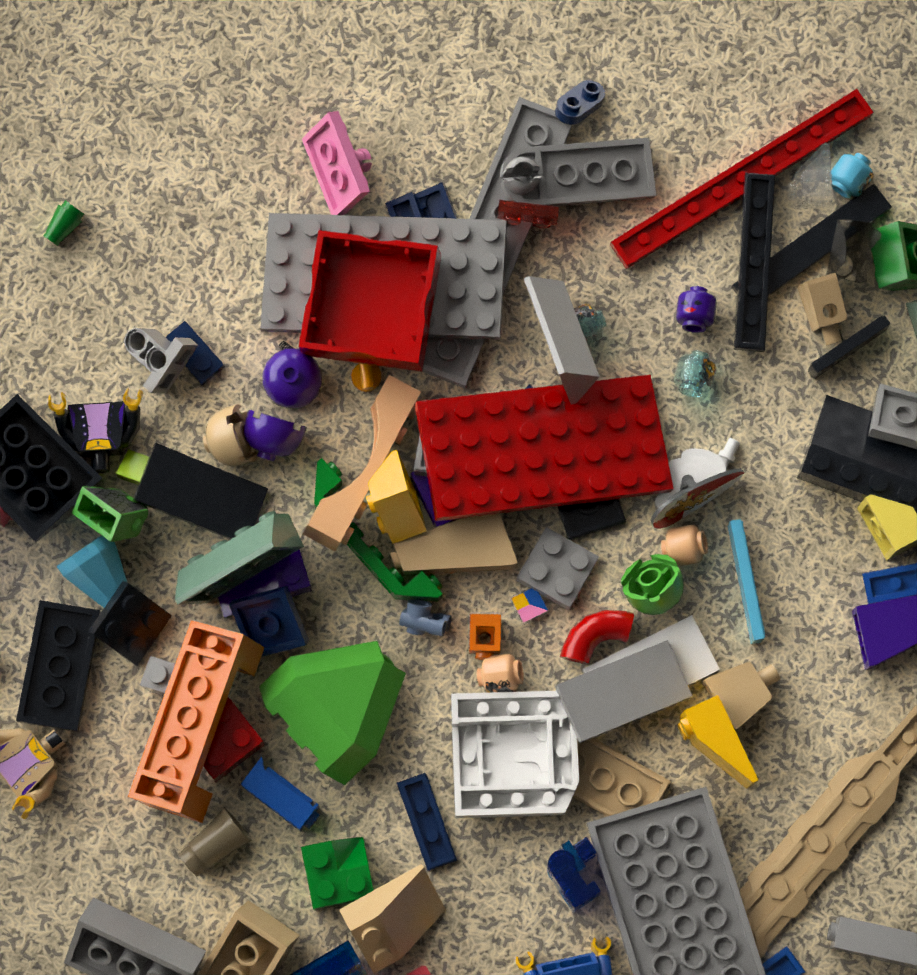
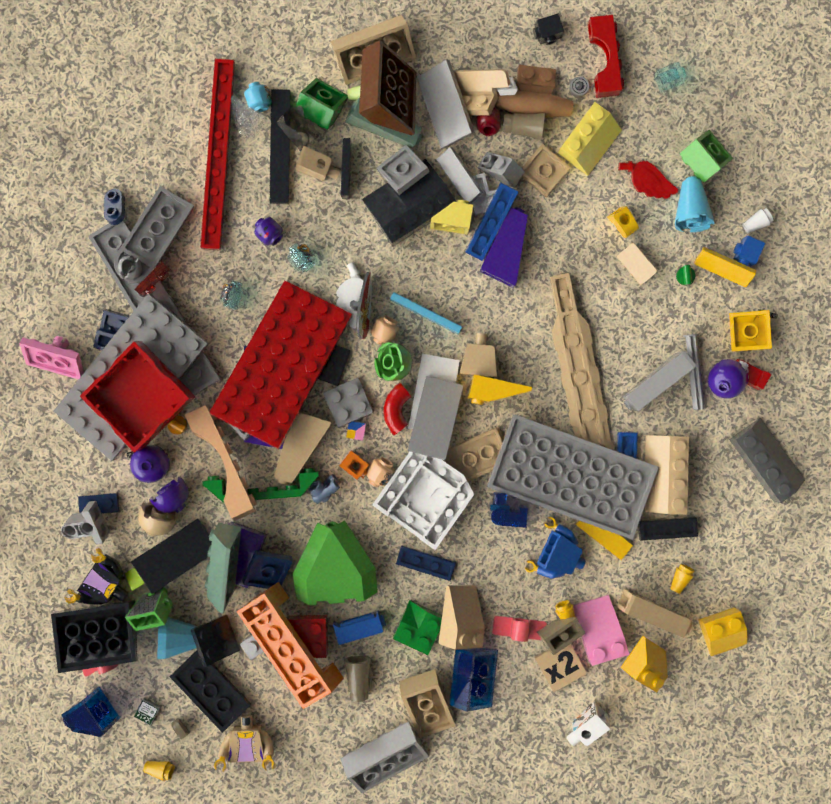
camera: 55 degrees left, 10 degrees up
(395, 500) = (252, 460): yellow slope -> none
(563, 335) = (230, 311): light grey slope -> none
(754, 262) = (266, 182): black tile -> none

